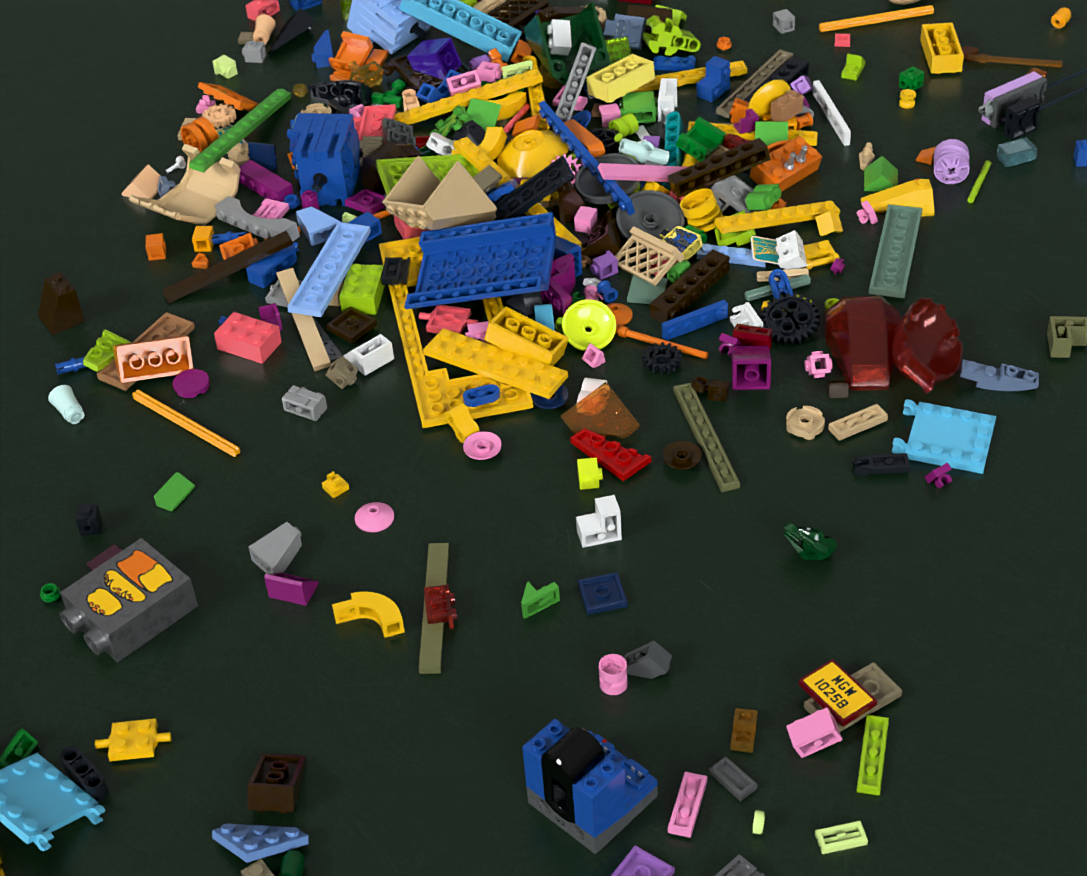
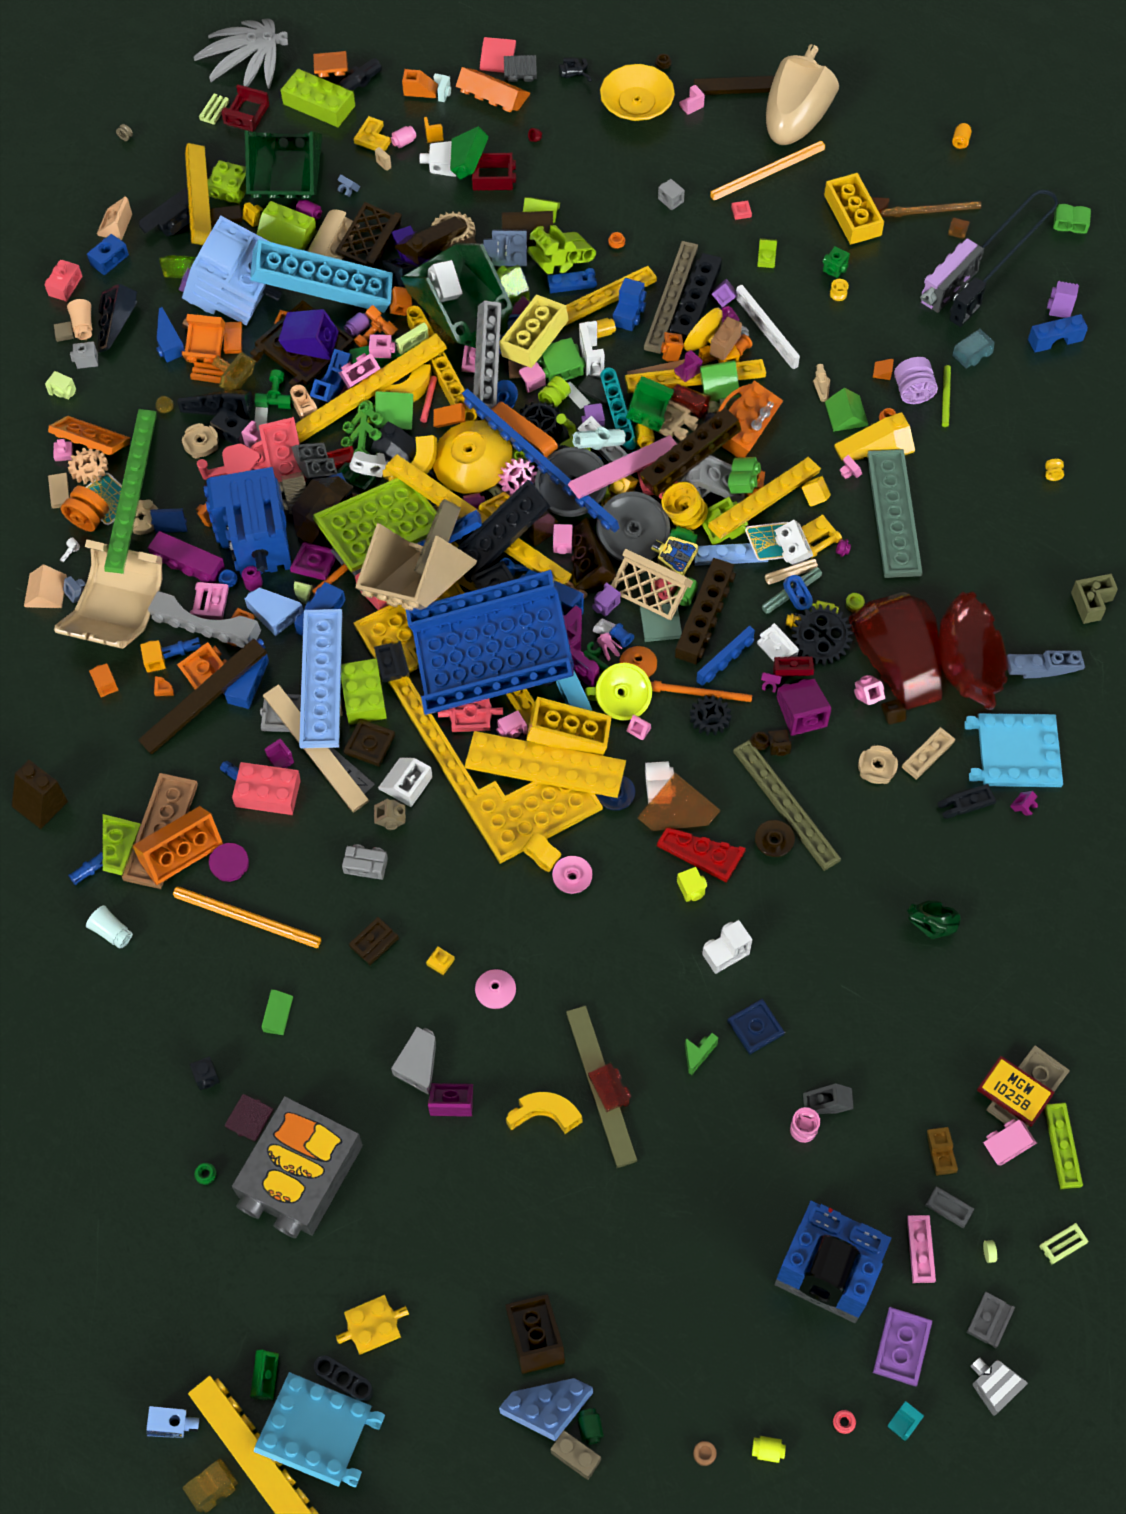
camera: 20 degrees left, 20 degrees up
(283, 459) = (373, 941): none -> dark brown plate
(481, 395) = (548, 813): blue plate -> none
(686, 93) = (605, 327): none -> yellow brick
(1063, 243) = (1054, 469): none -> yellow wheel

